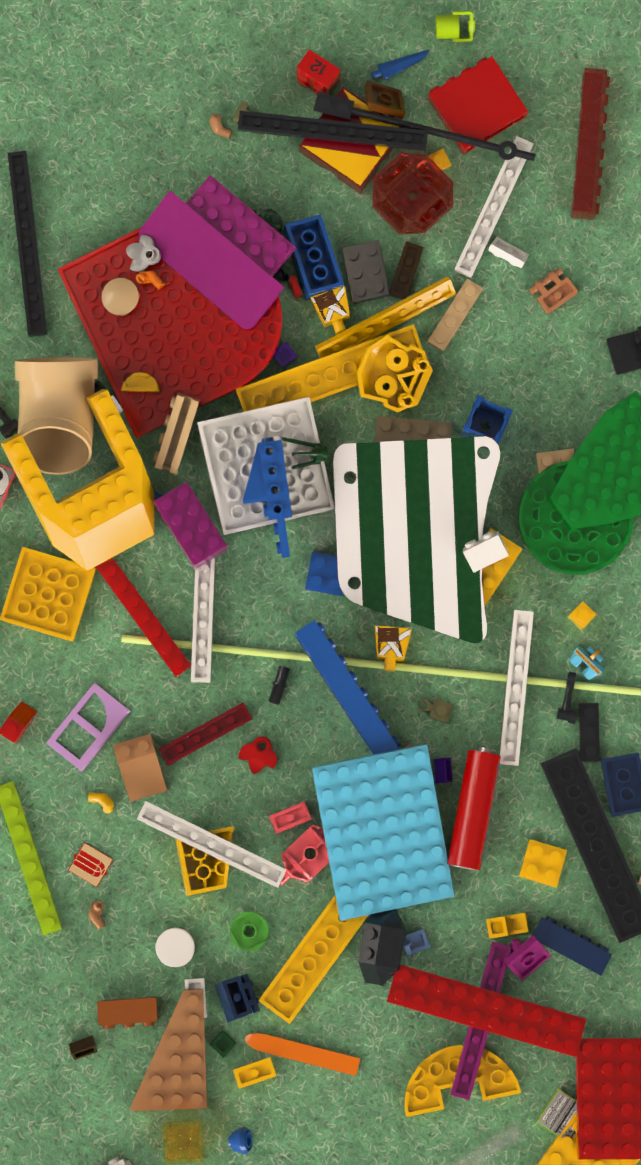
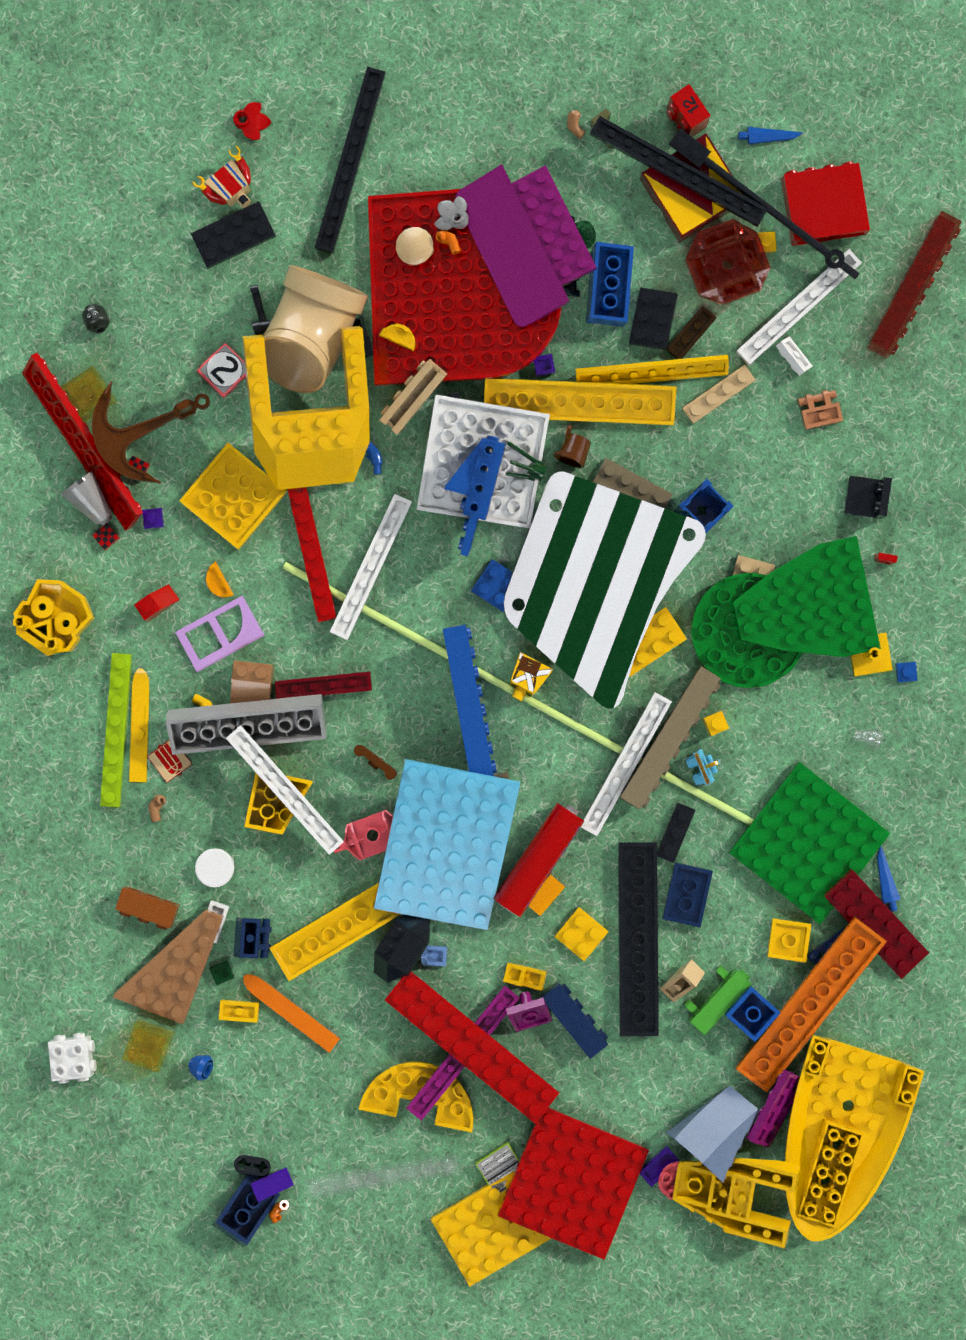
camera: 25 degrees right, 5 degrees up
(49, 846) = (139, 727): none -> yellow piece
(65, 680) = (217, 583): none -> light orange tile
(83, 1047) = (94, 922): dark brown piece -> none
(166, 788) = (264, 720): none -> light grey brick
(190, 525) = (389, 488): magenta brick -> none
(238, 928) = (296, 888): bright green plate -> none
(257, 757) = (362, 727): red plate -> none
(279, 685) = (409, 669): black axle -> none
(283, 784) = (375, 761): none -> reddish brown plate
(290, 817) = (369, 794): coral plate -> none
(295, 287) = (581, 305): red tile -> none
(332, 308) = (607, 340): torso -> none
(345, 420) = (574, 449): none -> reddish brown hat
(379, 368) = (626, 414): yellow brick -> none
(384, 100) = (740, 162): reddish brown plate -> none
(438, 710) = (546, 753): olive plate -> none
(443, 770) = (526, 811): dark purple piece -> none
(448, 26) = (830, 117): lime piece -> none
(485, 551) = (651, 627): white brick -> none
(494, 841) = (546, 895): none -> light orange tile
(545, 647) = (669, 738): none -> dark tan brick
(567, 713) = (662, 806): black brick -> none

